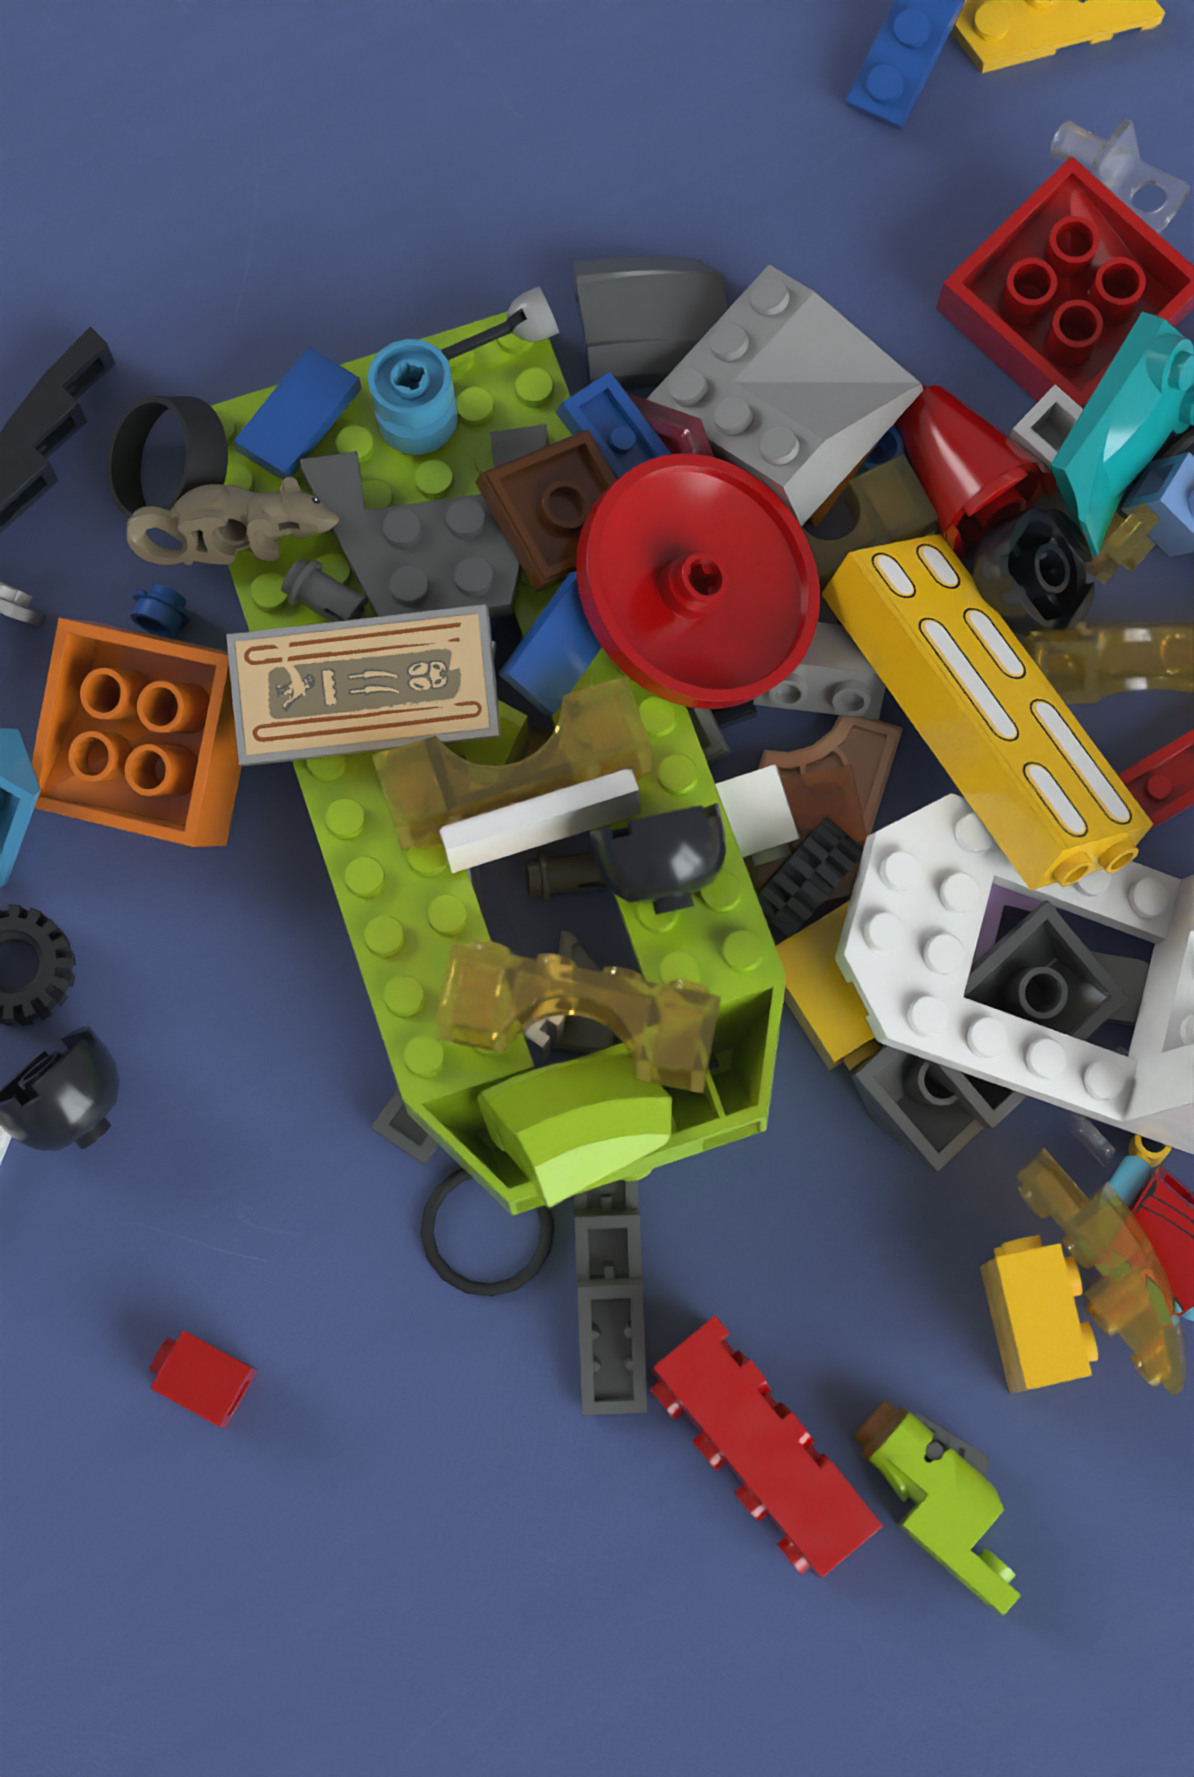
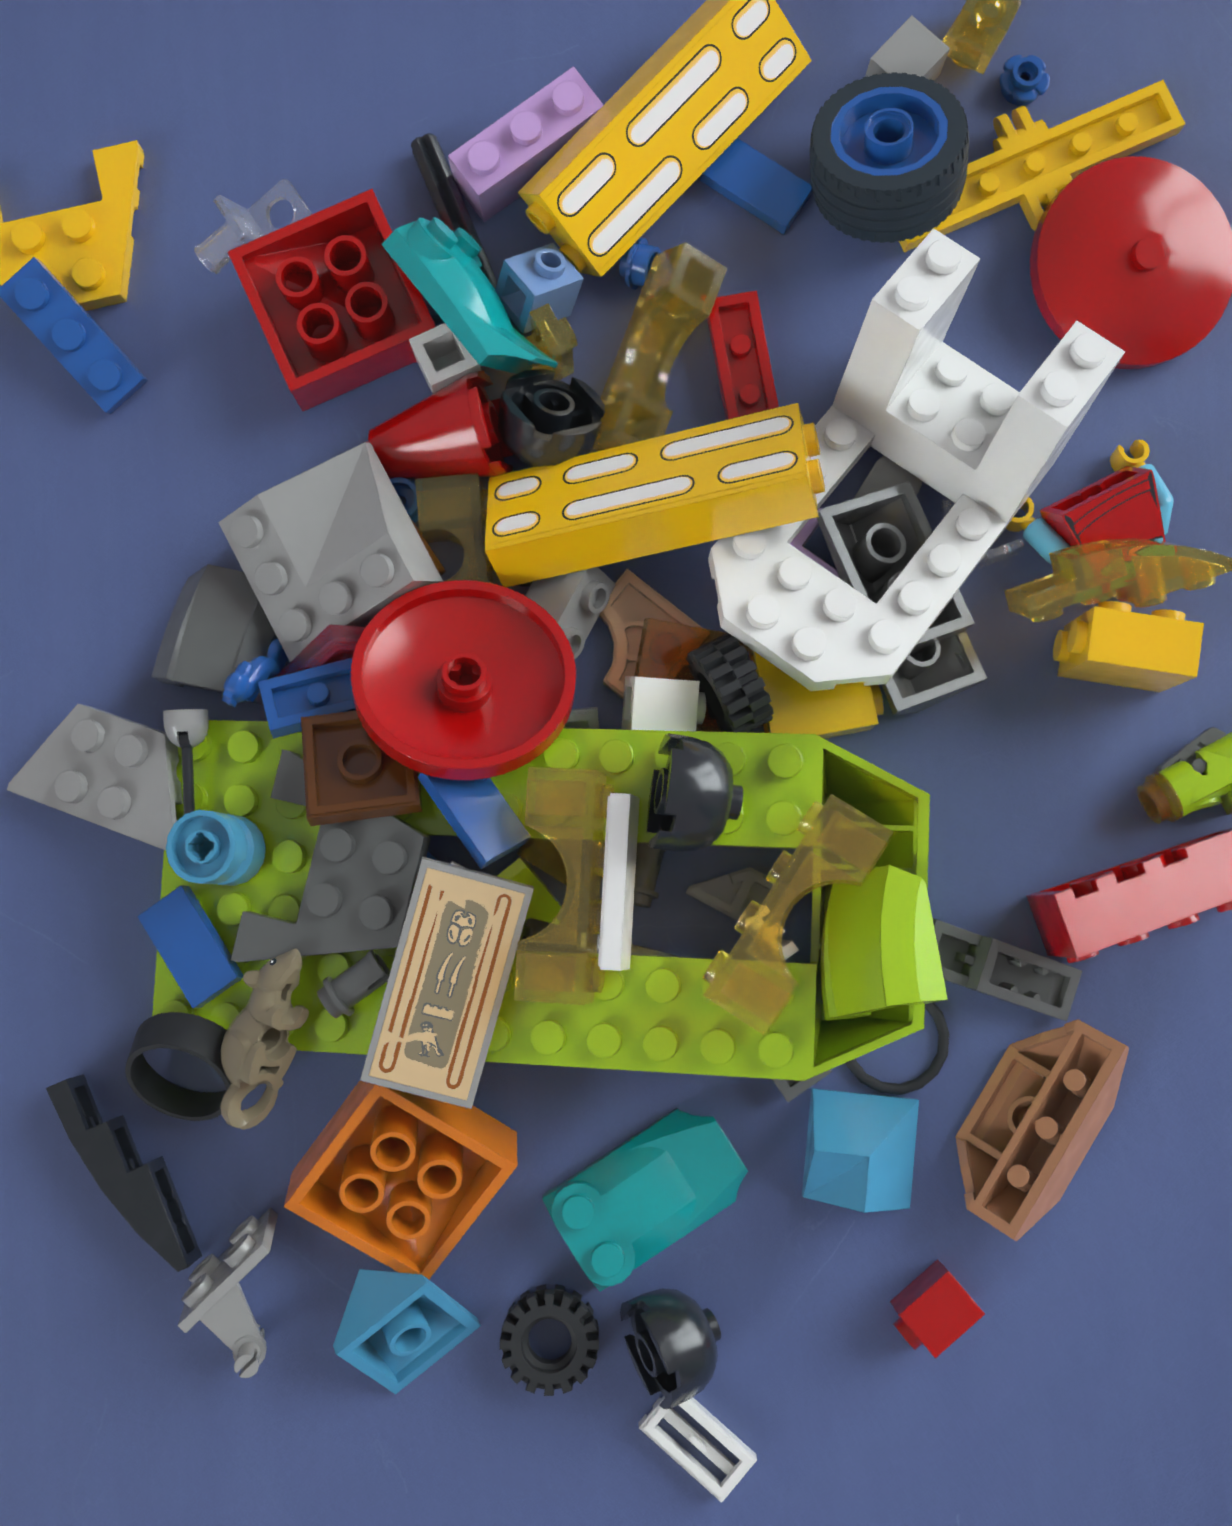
camera: 65 degrees left, 5 degrees up
(160, 611) = (305, 1114): blue plate -> none
(208, 1012) = (645, 1195): none -> teal slope
(348, 1234) = (860, 1150): none -> dark azure slope
(448, 256) = (106, 774): none -> light grey wing
(451, 1418) = (1037, 1123): none -> nougat wedge
(602, 356) = (244, 681): none -> blue animal

